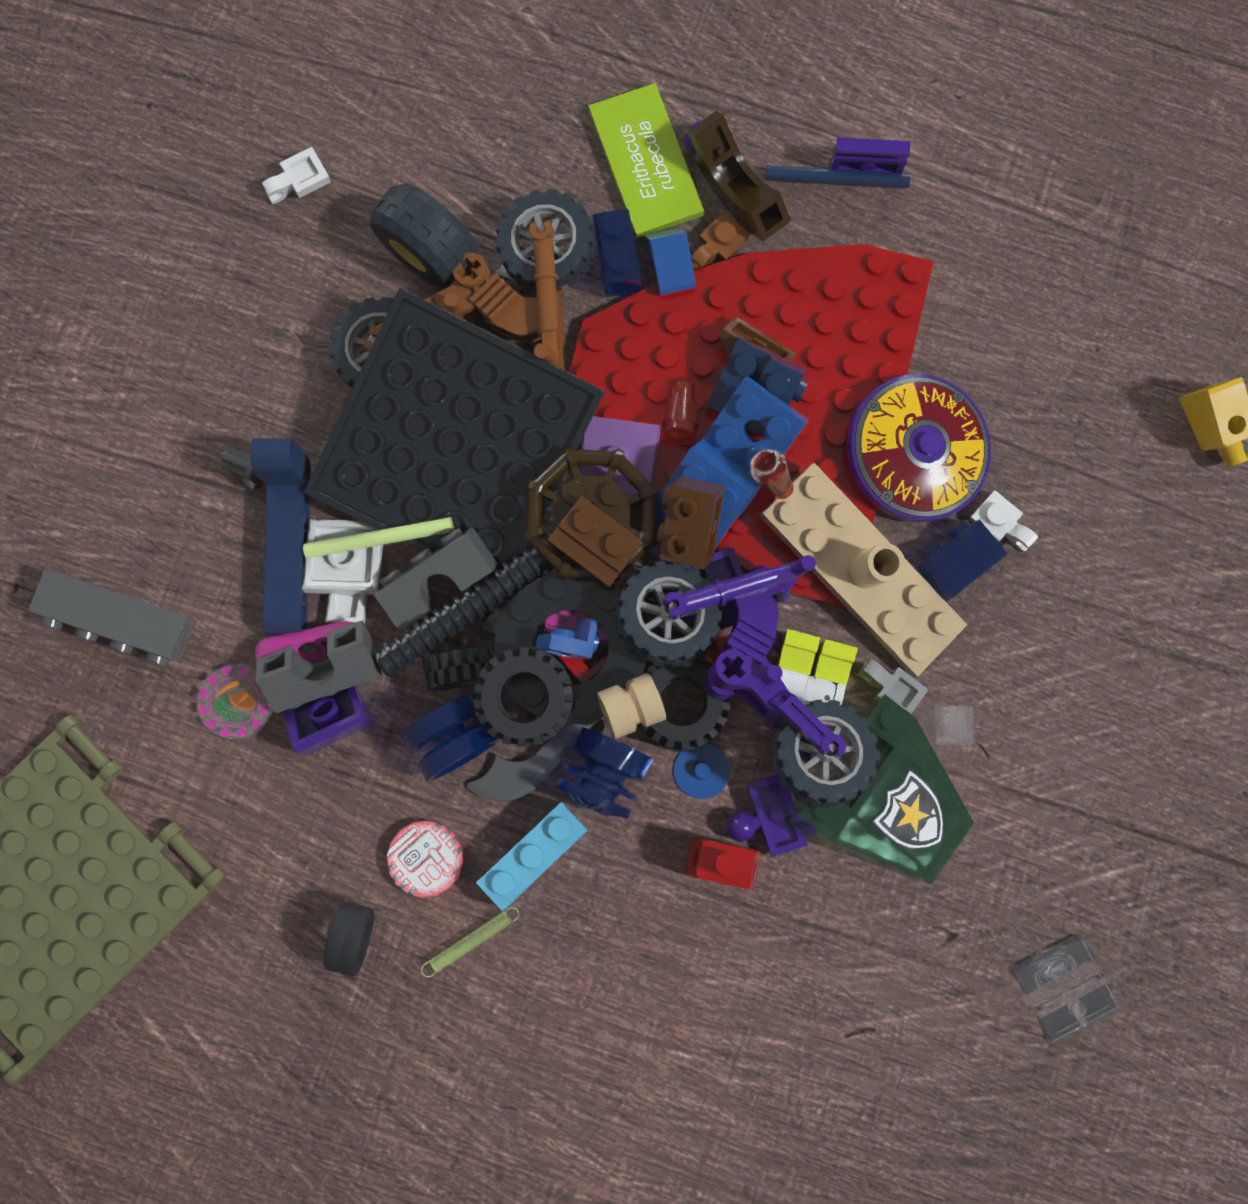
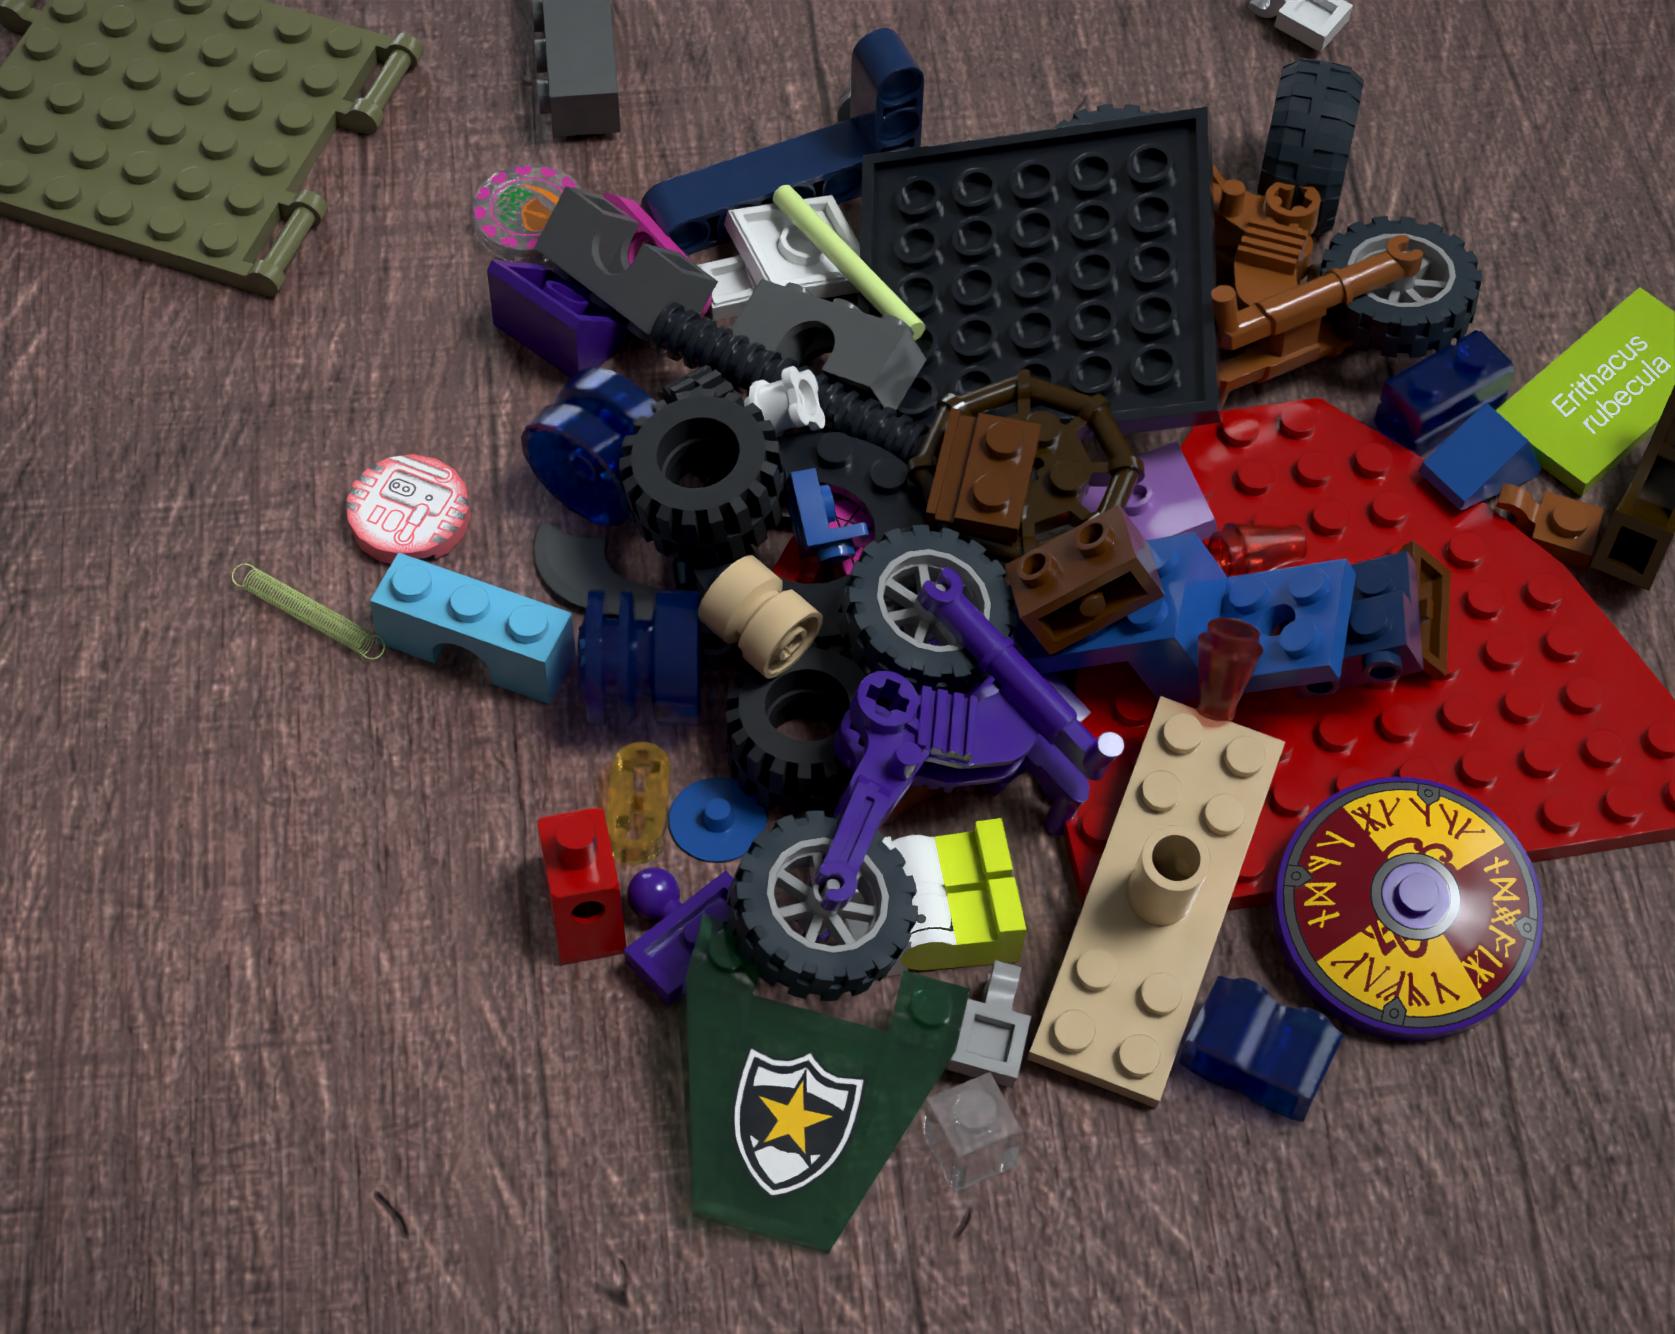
camera: 65 degrees right, 25 degrees down
(348, 939) = (247, 442): black tyre -> none
(482, 625) = (789, 401): none -> white brick
(674, 818) = (625, 802): none -> clear yellow beam
(1001, 520) = (1368, 1090): white plate -> none

